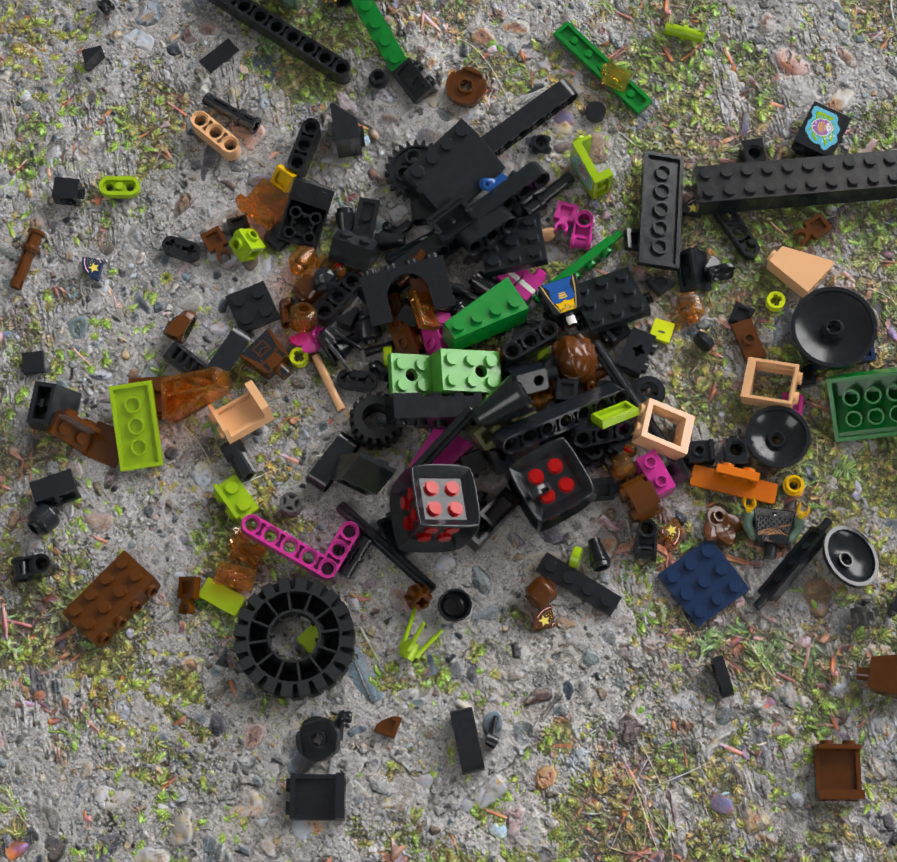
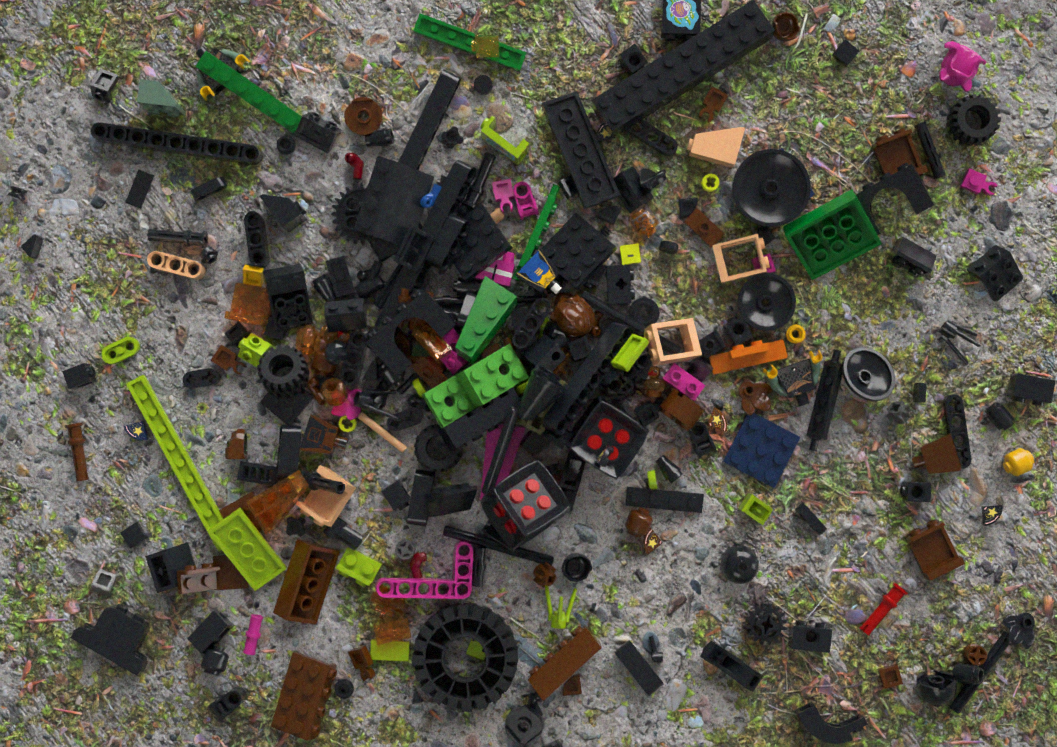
camera: 20 degrees left, 15 degrees up
(95, 513) = (253, 634): none -> dark pink pin
(117, 304) = (175, 452): none -> lime plate
(153, 606) = (341, 694): none -> black plate
(176, 487) = (306, 582): none -> reddish brown slope
(194, 424) = (294, 521): none -> black plate
(239, 394) = (316, 482): none -> black pin
(251, 141) = (208, 255): none -> black plate
(264, 275) = (278, 359): none -> black tyre
(284, 83) = (209, 188): none -> black beam
(293, 523) = (416, 562): none -> dark red arm
(310, 447) = (396, 495): none -> black brick
(393, 693) = (564, 661): none -> reddish brown slope
(436, 126) = (357, 163): none -> dark red arm
(470, 298) = (465, 309): none -> beam
(471, 113) = (380, 138): none -> black cone
(564, 782) = (731, 665): none -> black arch
(624, 687) = (739, 564): none -> black cylinder
(630, 767) = (757, 621): none -> black gear
(649, 797) = (820, 642): none -> black brick
(668, 637) = (755, 508): none -> lime slope
(765, 804) = (889, 601): none -> red pin
(856, 702) = (924, 493): none -> black brick

